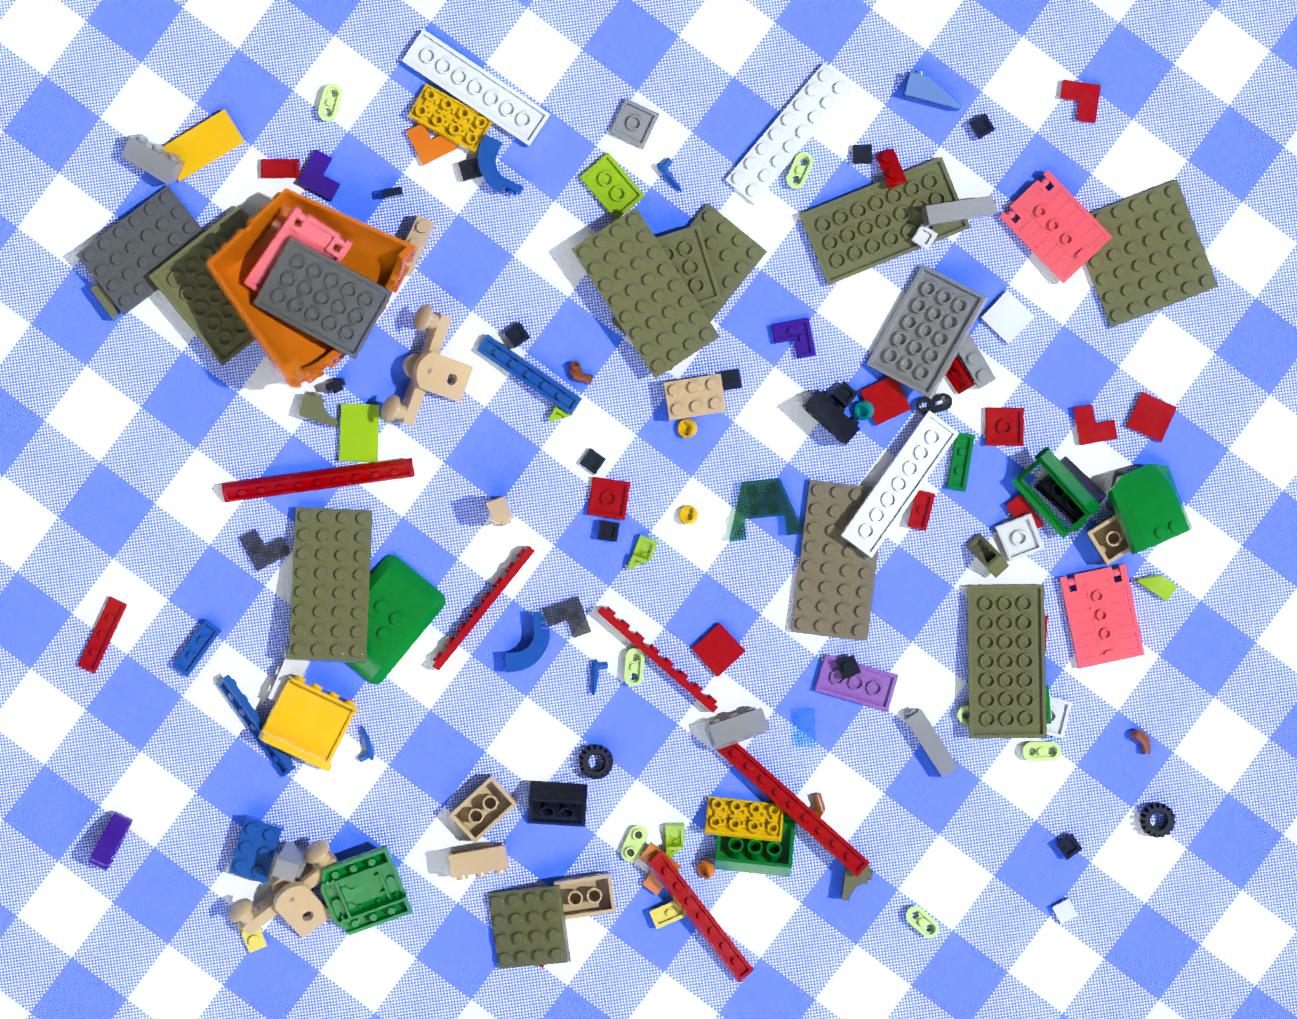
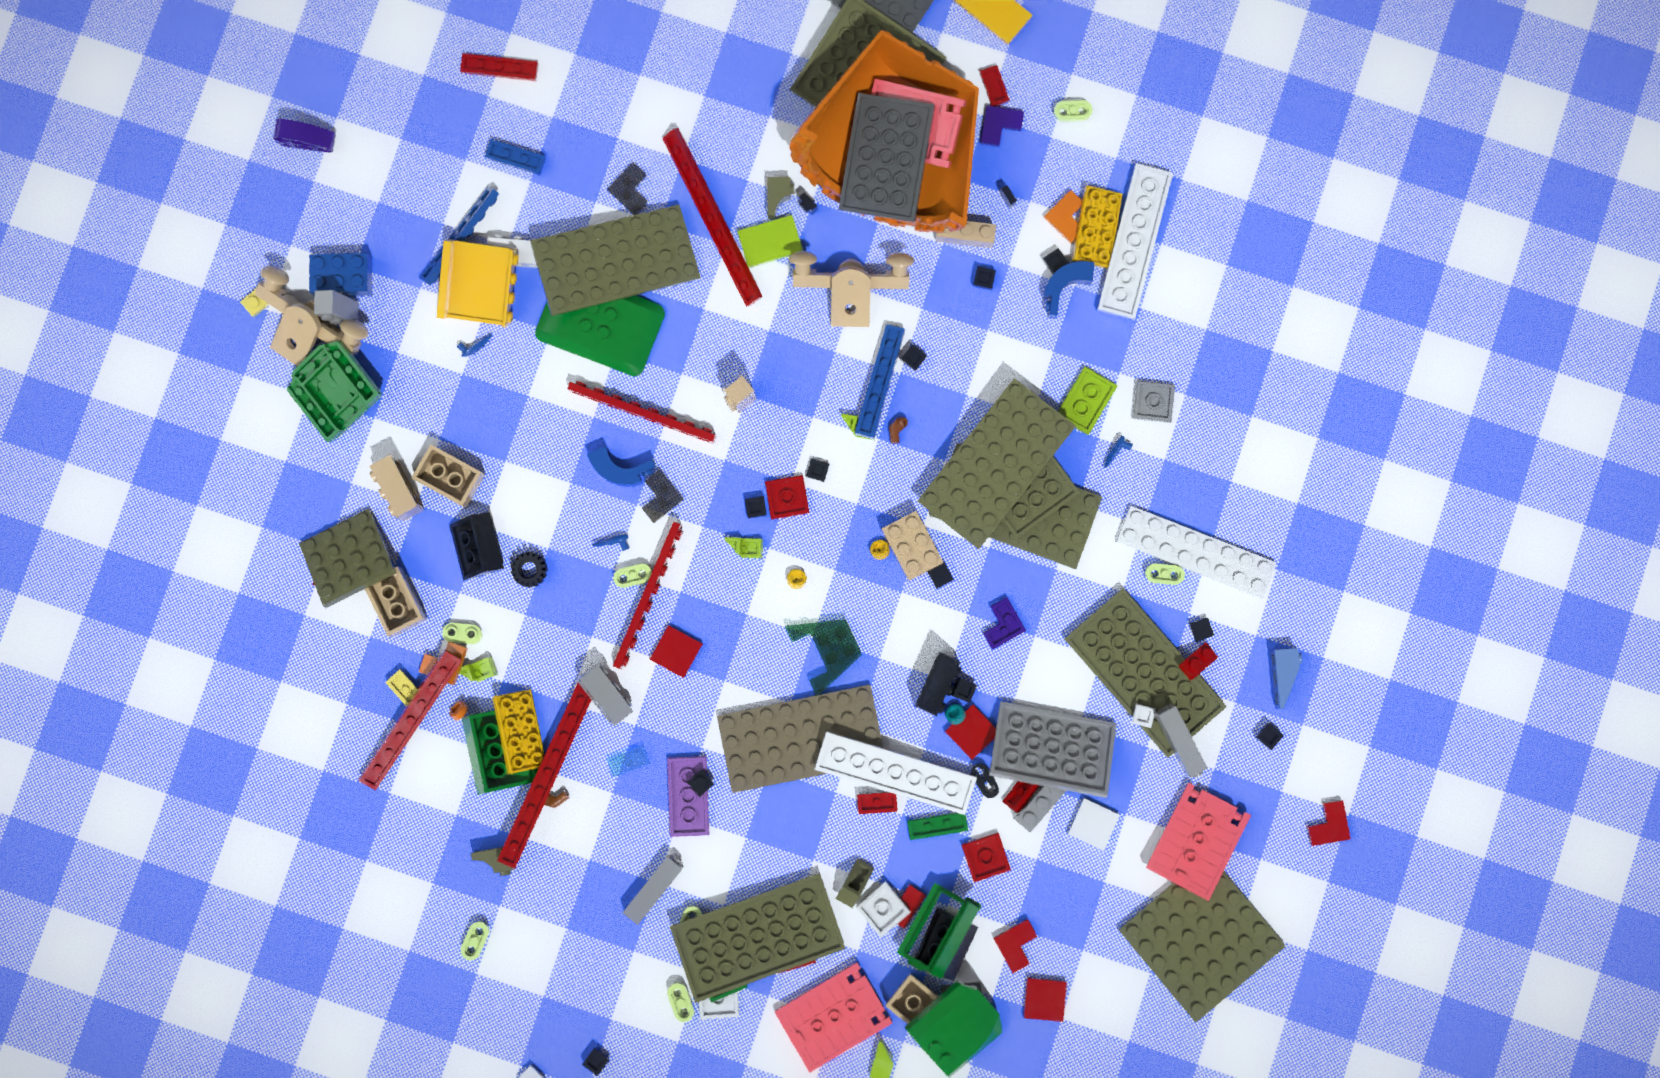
camera: 70 degrees right, 5 degrees down
(463, 242) = (984, 278): none -> black plate

